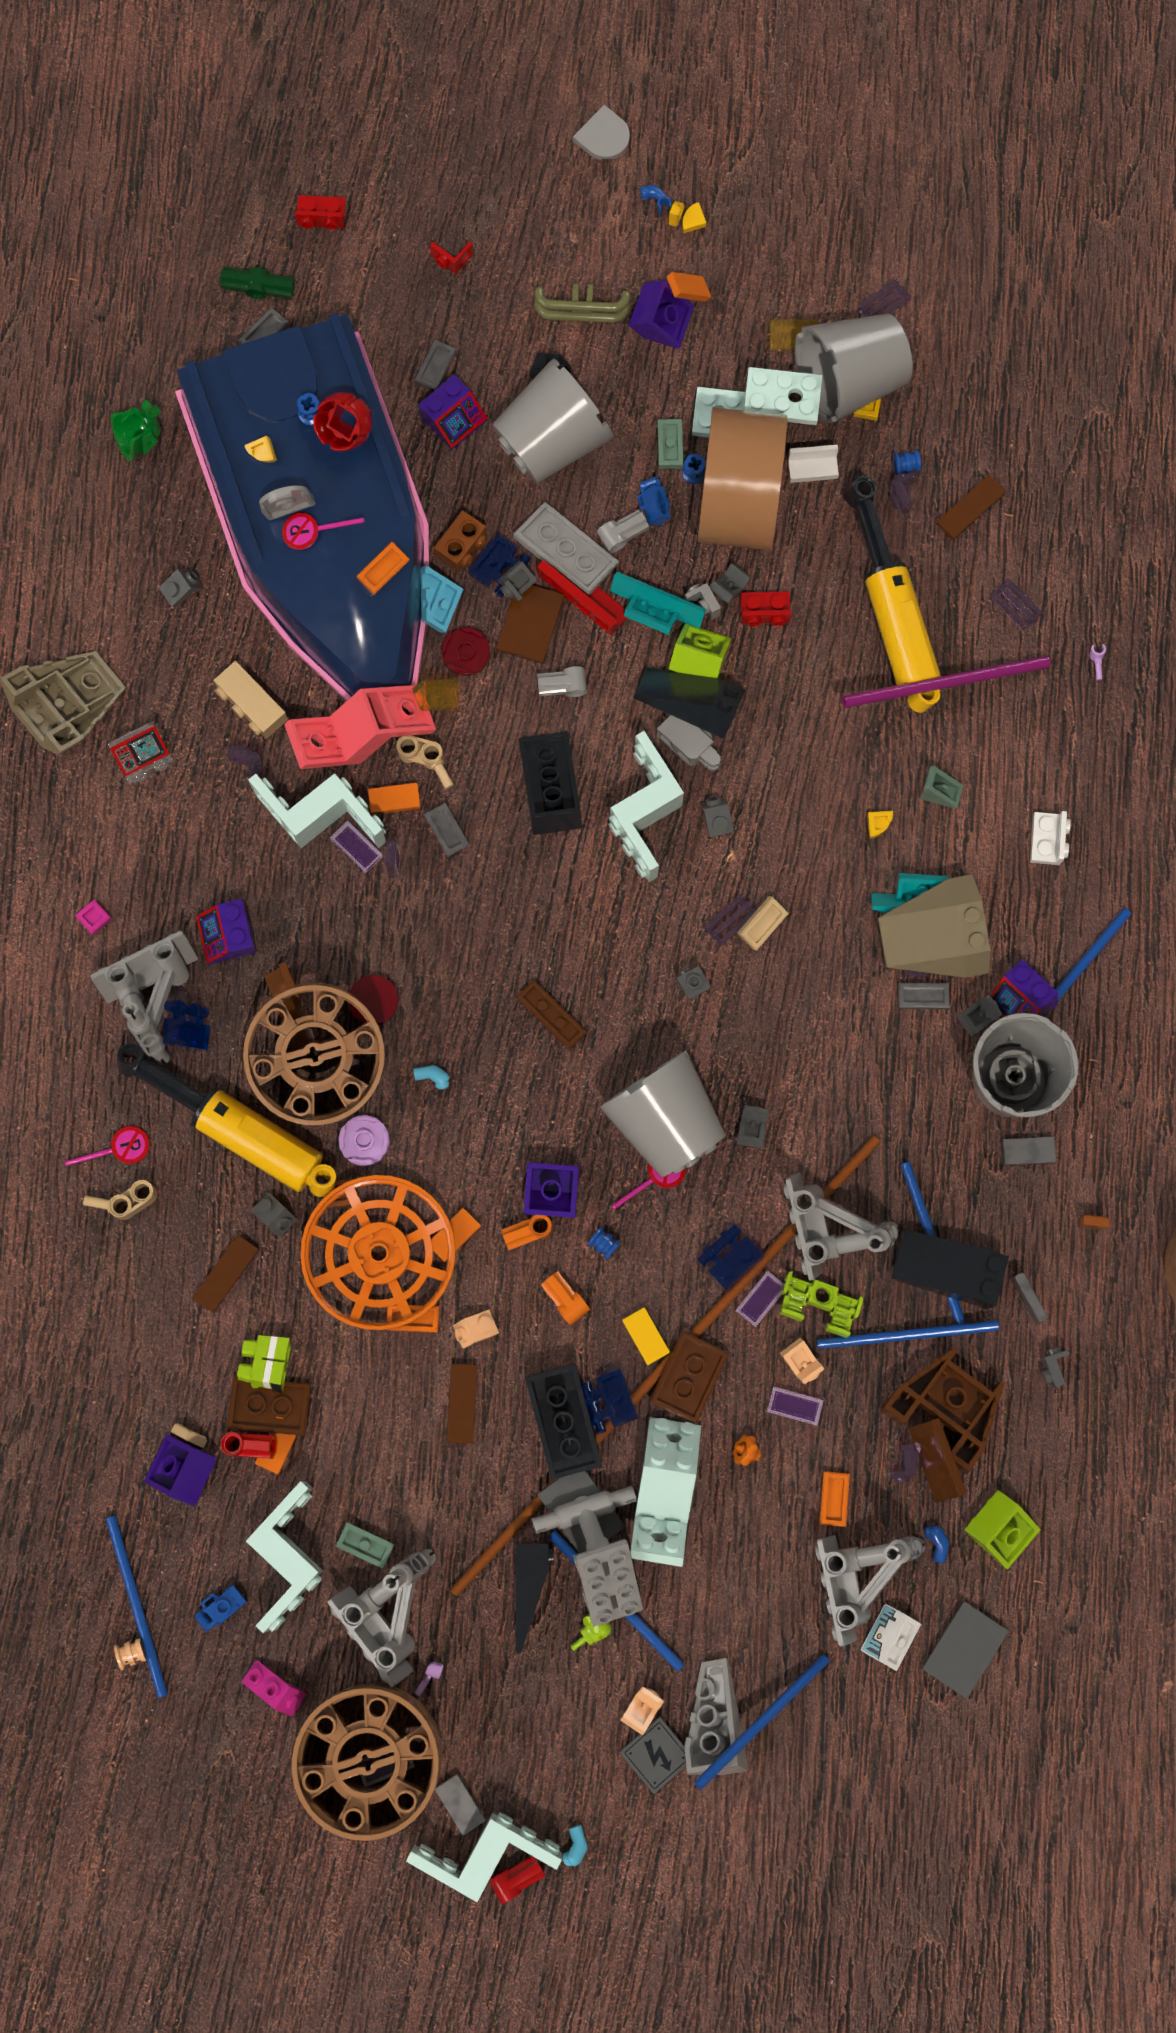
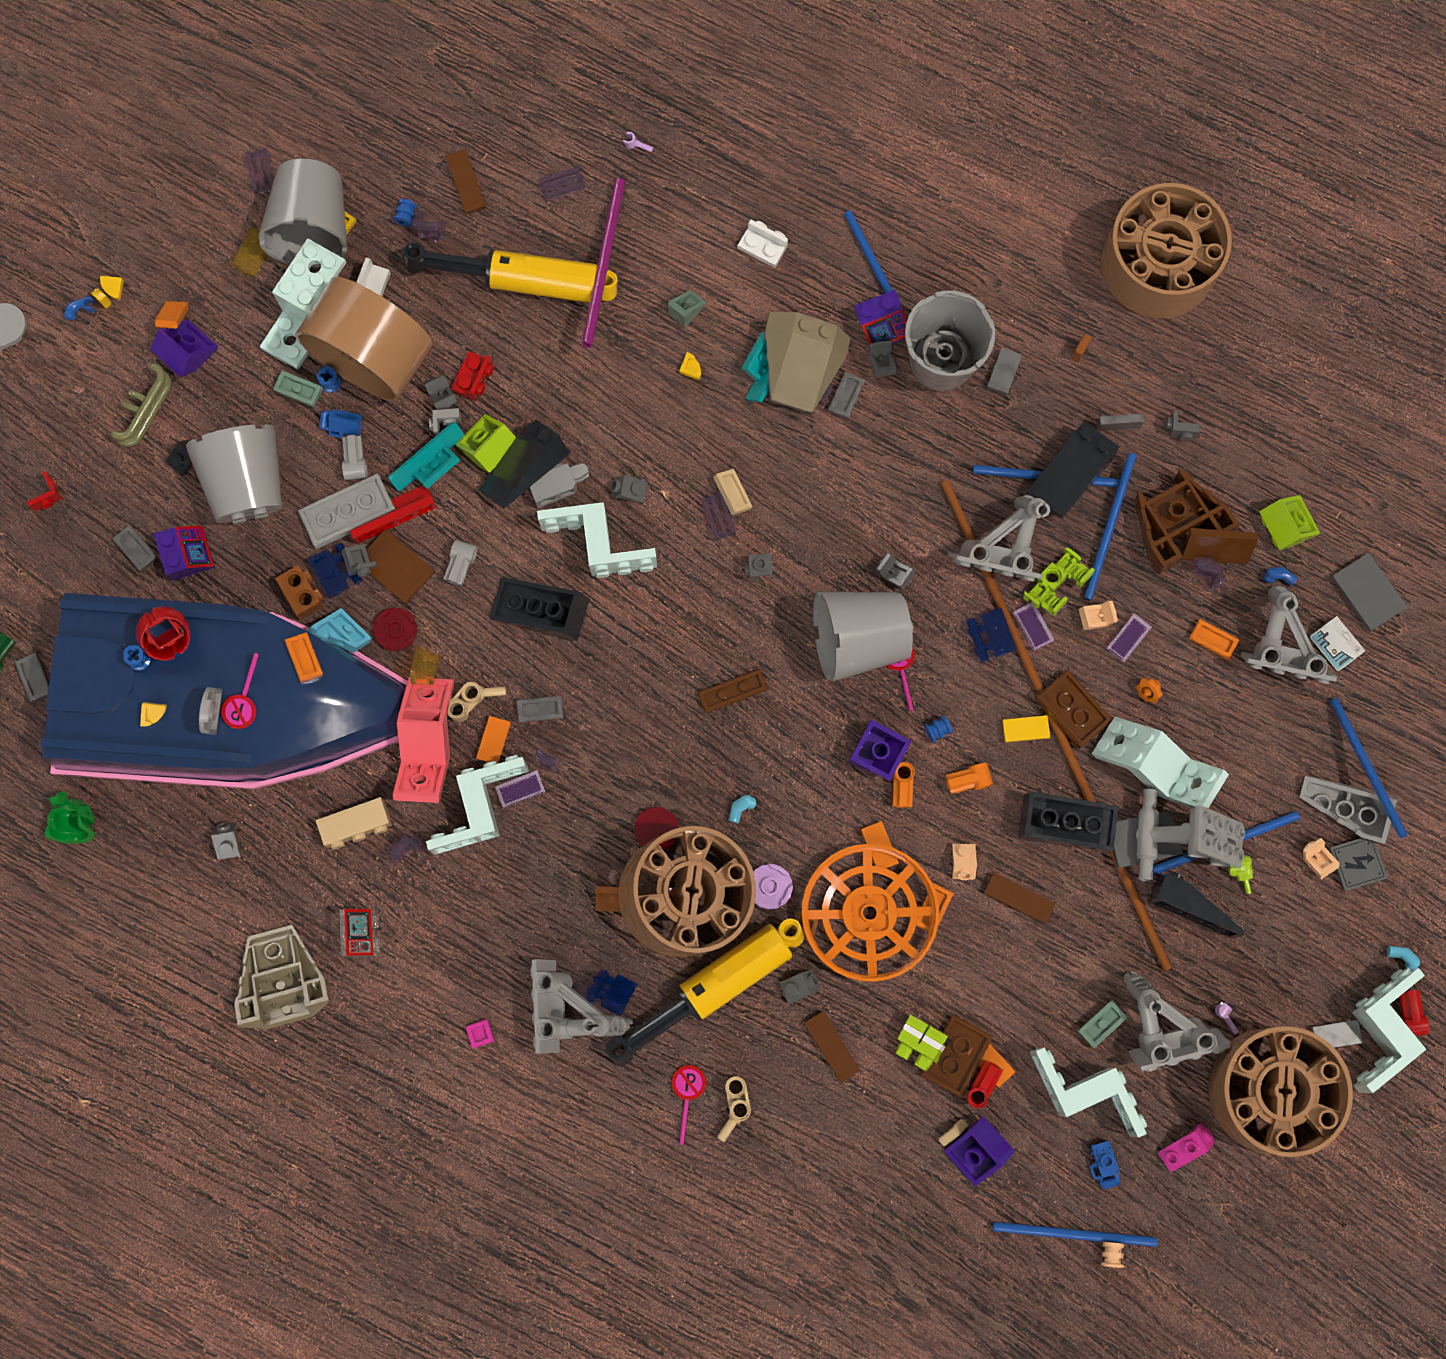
camera: 65 degrees left, 0 degrees up
(226, 932) = (544, 927): dark purple slope -> none
(616, 1398) = (1068, 772): clear blue plate -> none

